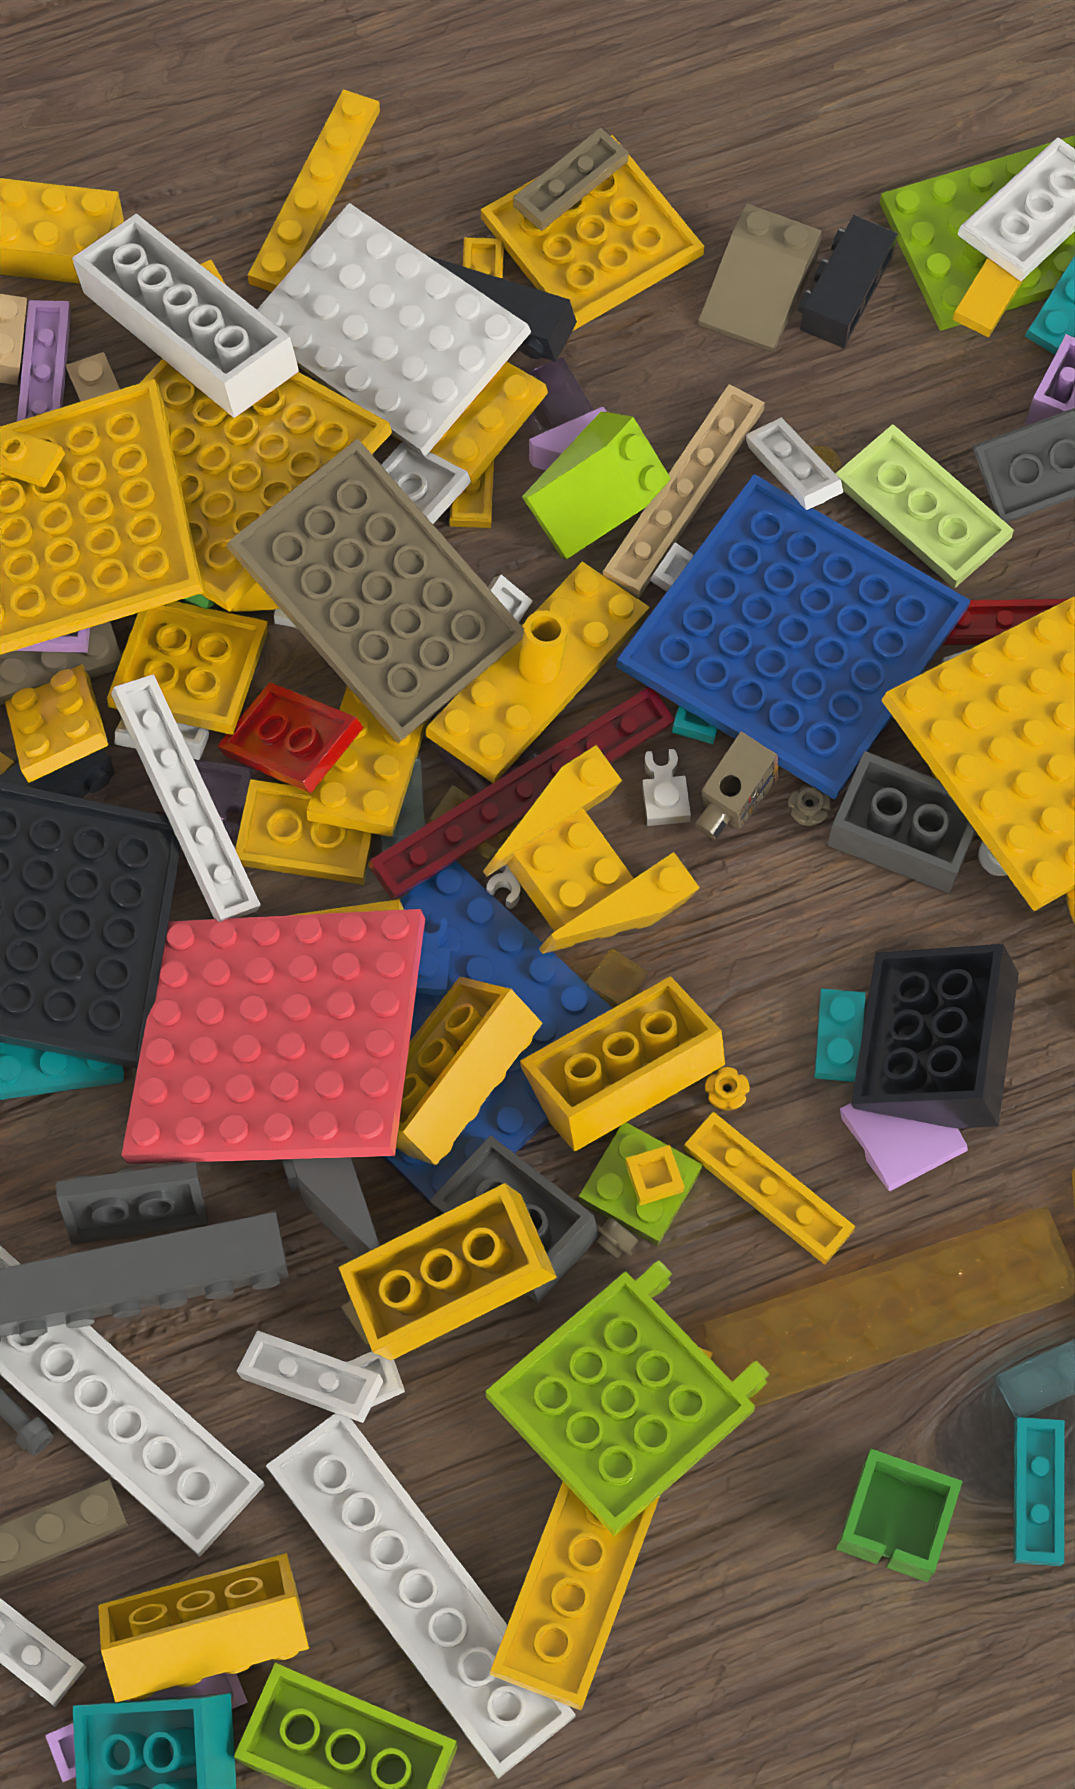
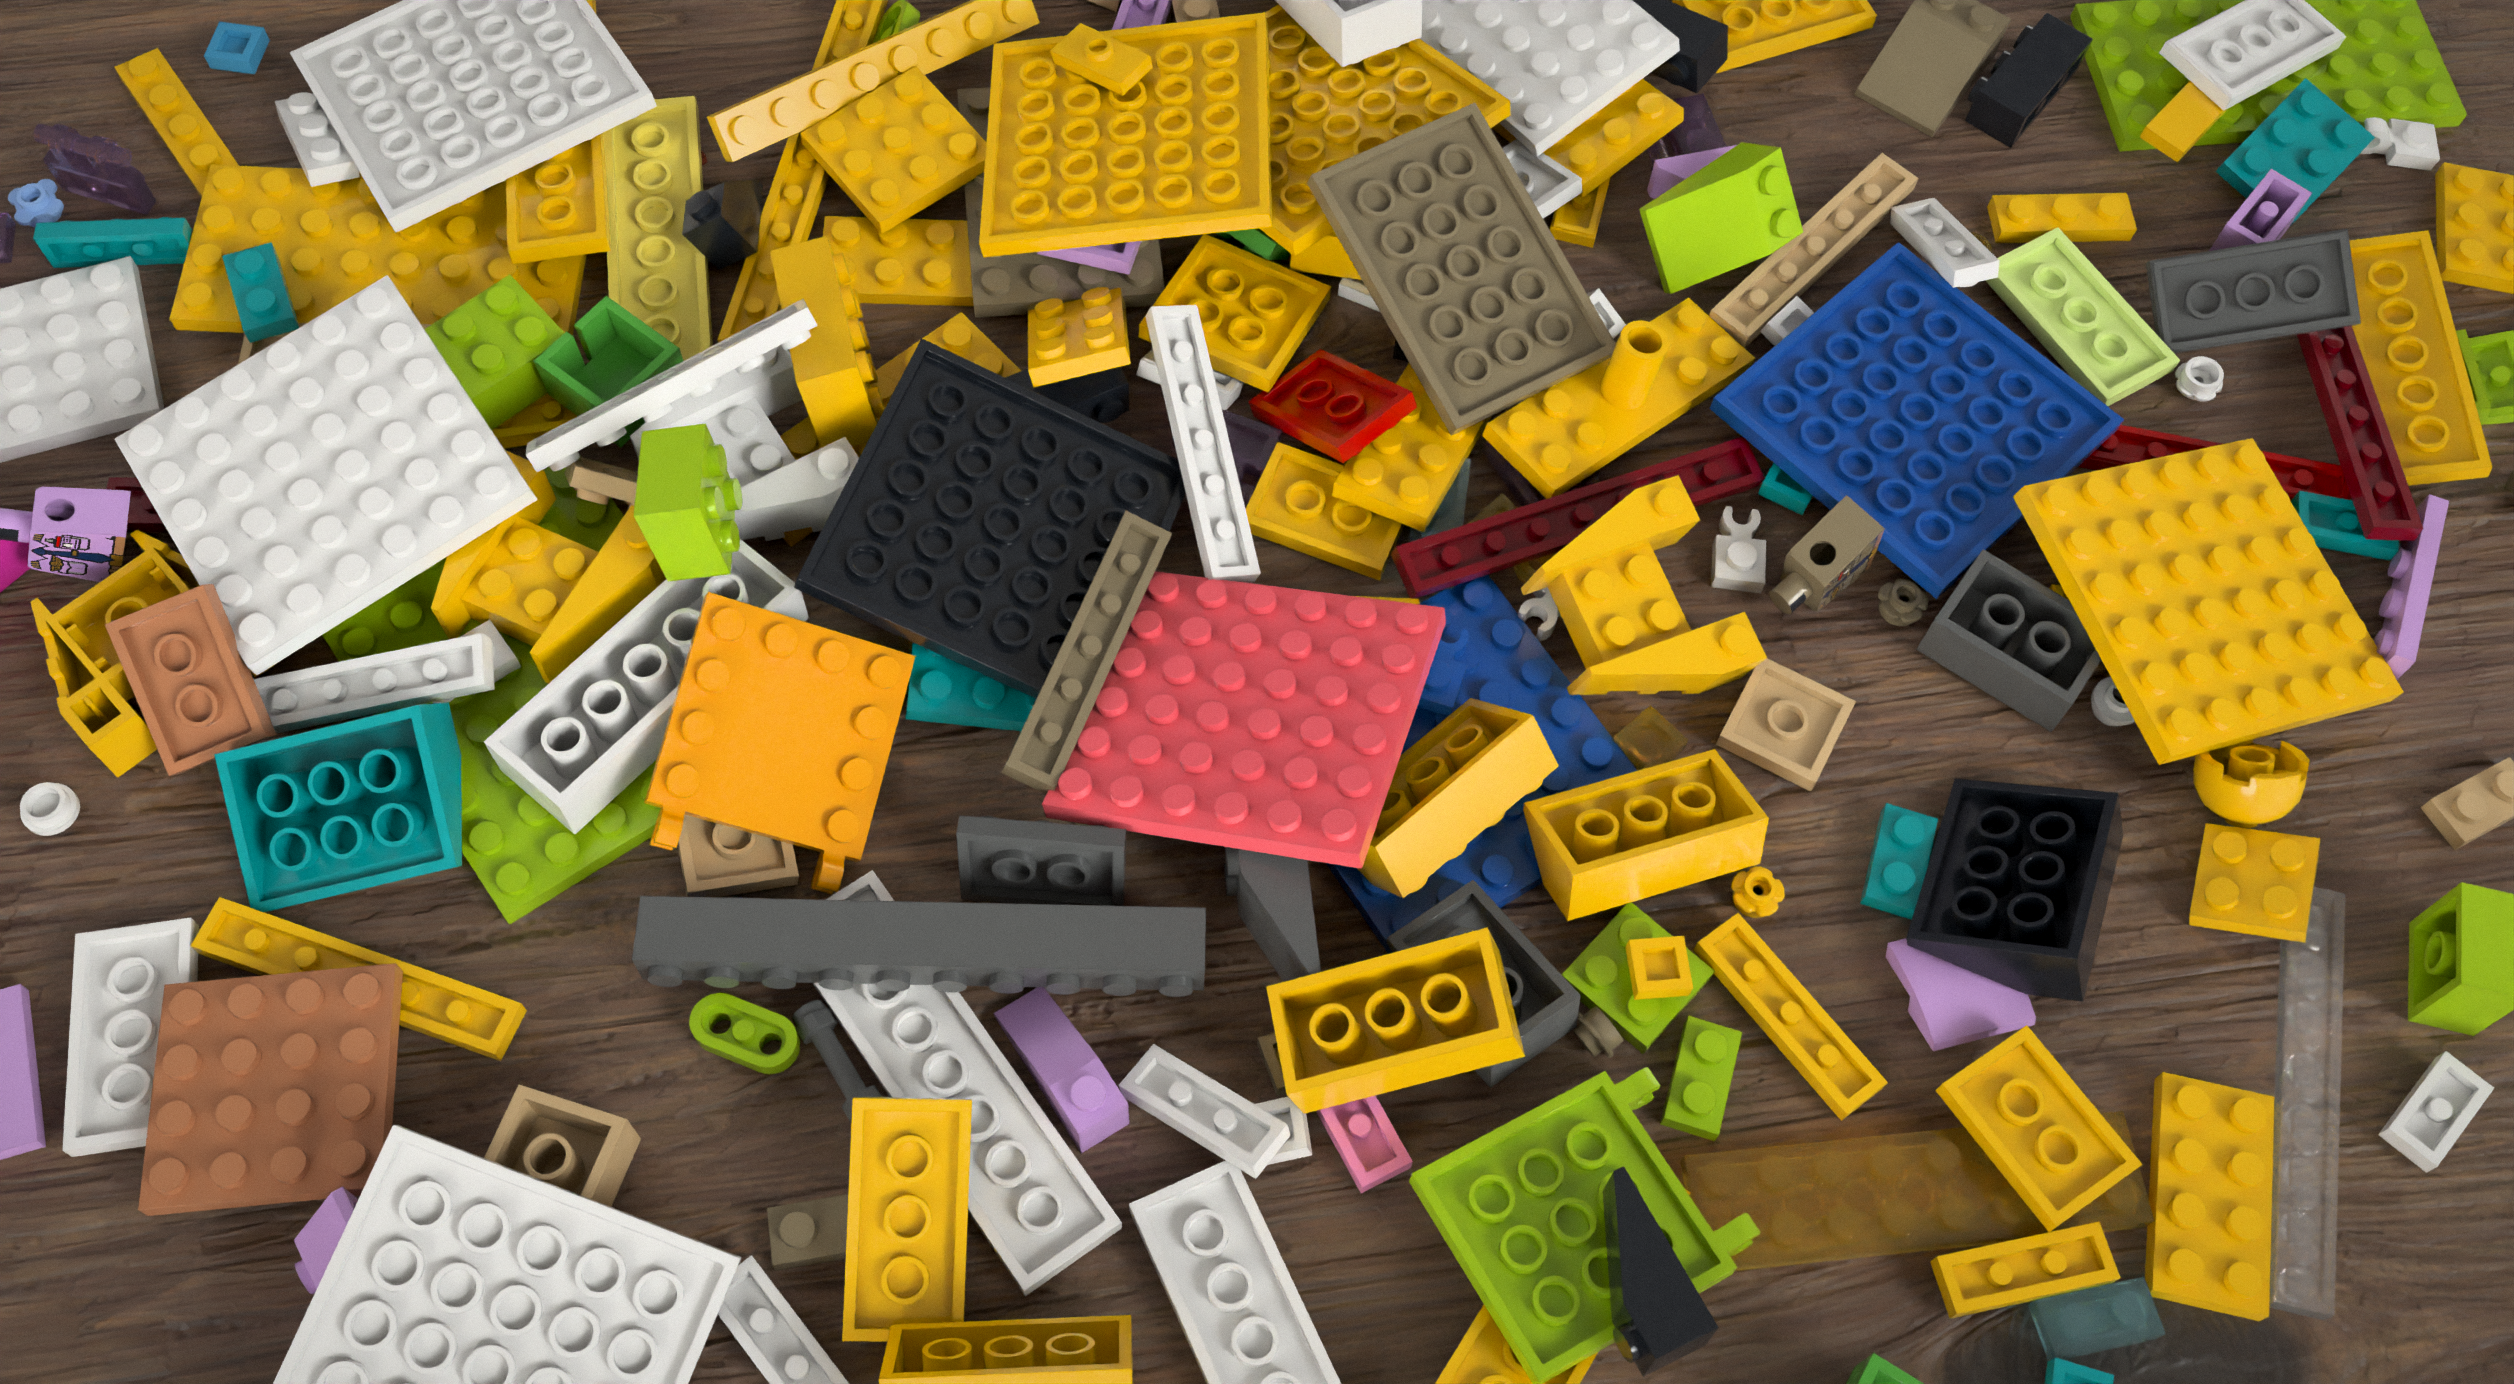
camera: 10 degrees right, 5 degrees down
(89, 1515) = (906, 1214): none -> yellow plate
(129, 1013) = (1087, 654): none -> dark tan plate
(188, 1366) = (1064, 1068): none -> lavender slope
(446, 1371) = (1366, 1141): none -> bright pink plate
(689, 1445) = (1651, 1295): none -> black slope
(707, 1255) = (1701, 1078): none -> lime plate
(727, 937) = (1786, 723): none -> tan plate
(903, 406) = (2079, 216): none -> yellow plate
(977, 1237) = (2038, 1128): none -> yellow plate
(985, 1352) = (2024, 1269): none -> yellow plate
(1037, 533) = (2200, 378): none -> white plate

